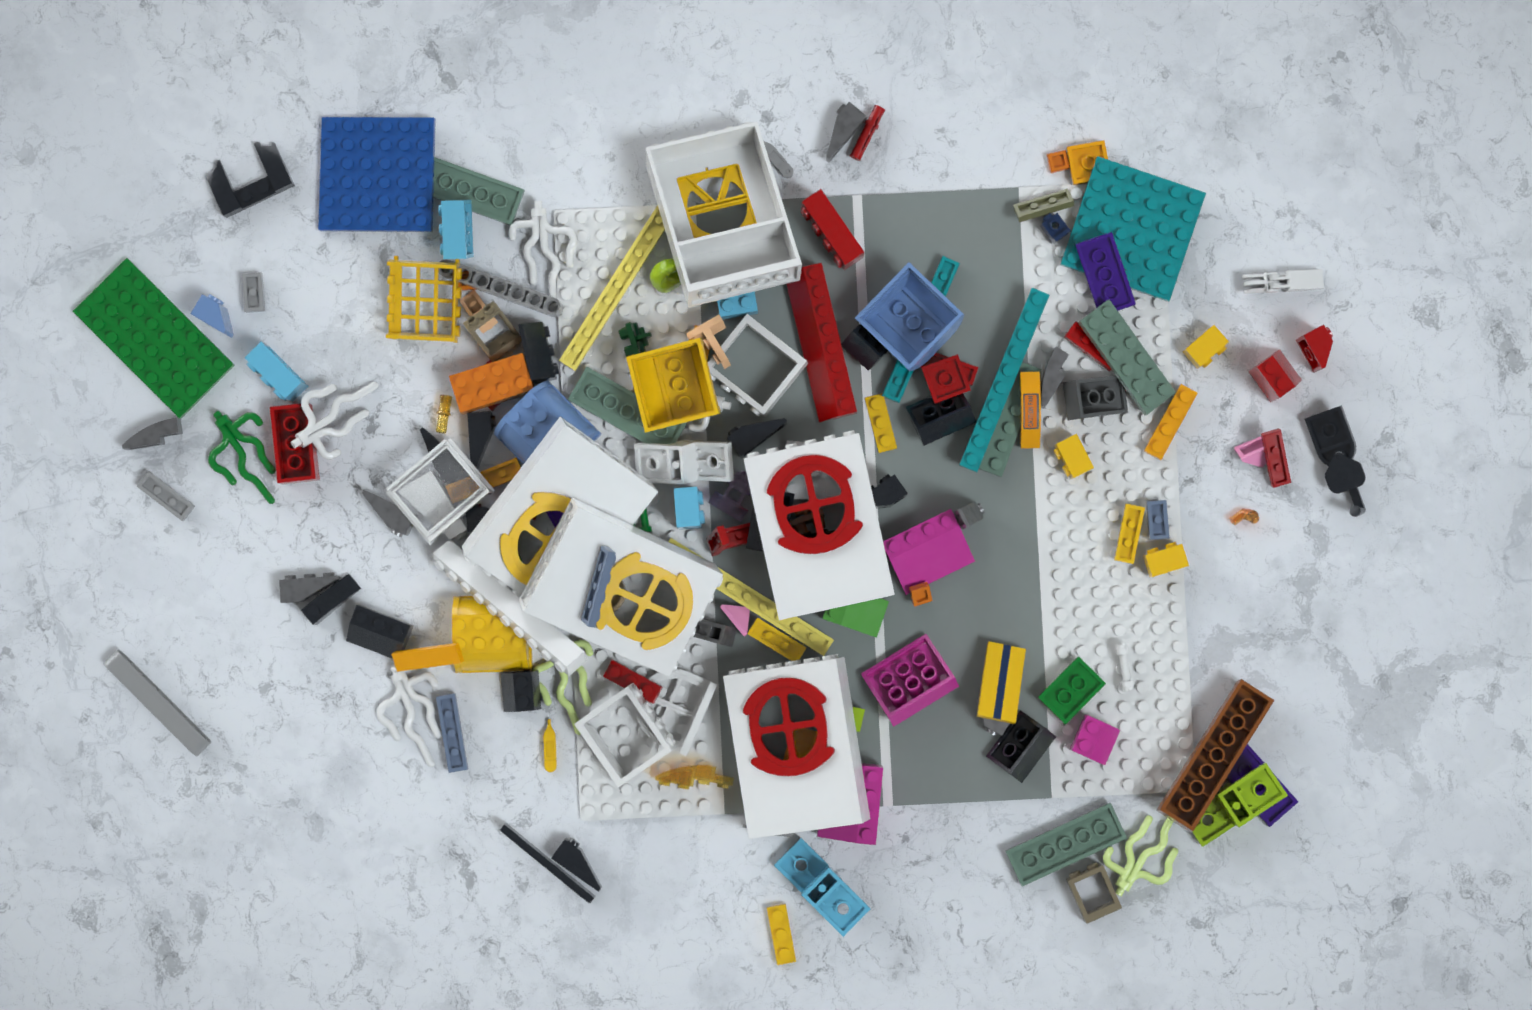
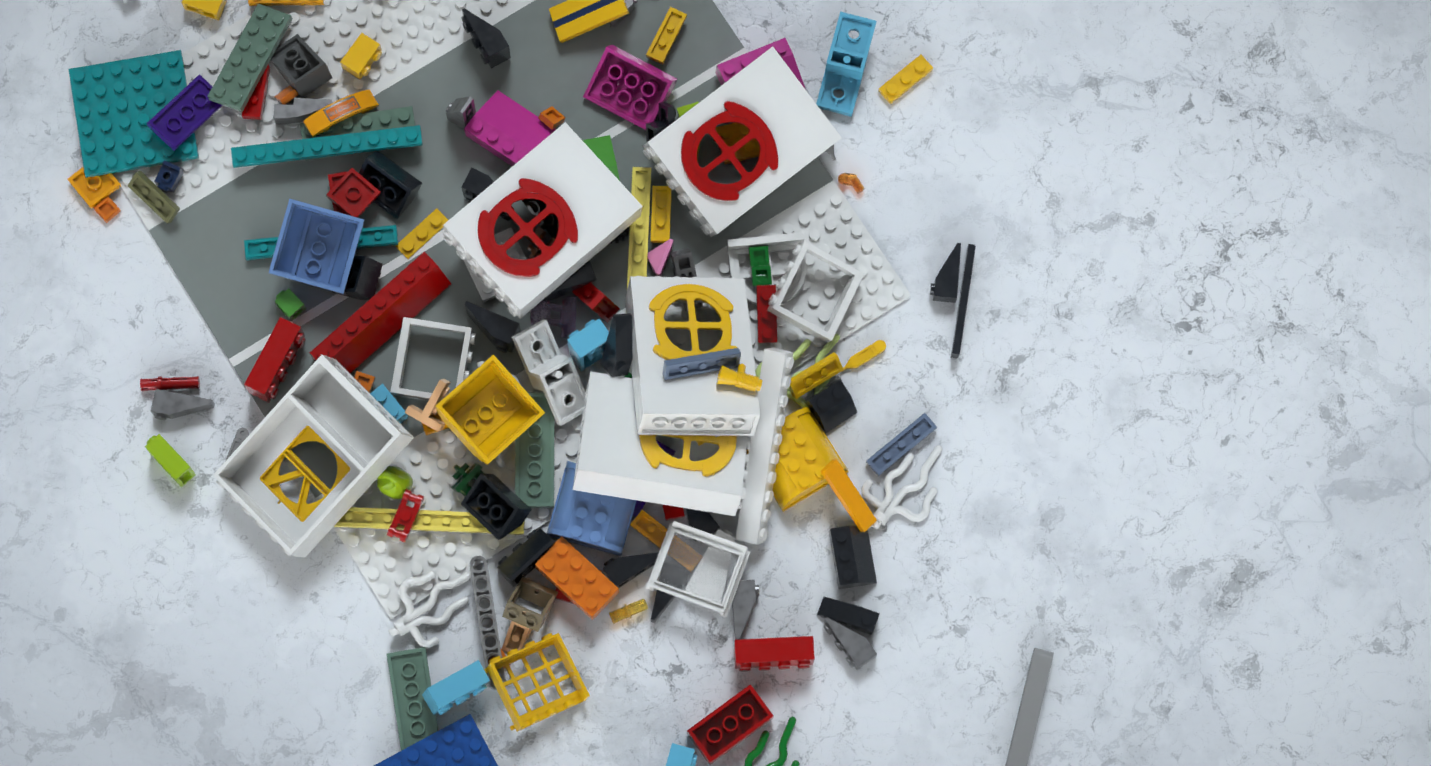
camera: 130 degrees left, 10 degrees down
(313, 431) = (709, 708): white plant -> none
(332, 516) = (774, 652): none -> red brick
(553, 693) = (815, 375): none -> yellow plate
(566, 612) = (739, 378): none -> yellow piece
(594, 348) = (495, 505): none -> black slope
(630, 267) = (405, 516): none -> red plate
(663, 526) = (618, 347): none -> black slope
(679, 700) = (760, 265): none -> green slope
(686, 775) = (819, 225): clear yellow slope -> none
(715, 830) = (851, 180): none -> clear orange arm
(771, 297) = (365, 380): none -> orange plate
(796, 95) = (169, 460): none -> lime window
(857, 691) = (666, 117): none -> black brick
(878, 271) = (289, 304): none -> bright green brick
(940, 740) = (666, 35): none -> yellow plate
(1019, 577) = (487, 38): none -> black slope
(1073, 370) = (286, 95): none -> orange tile

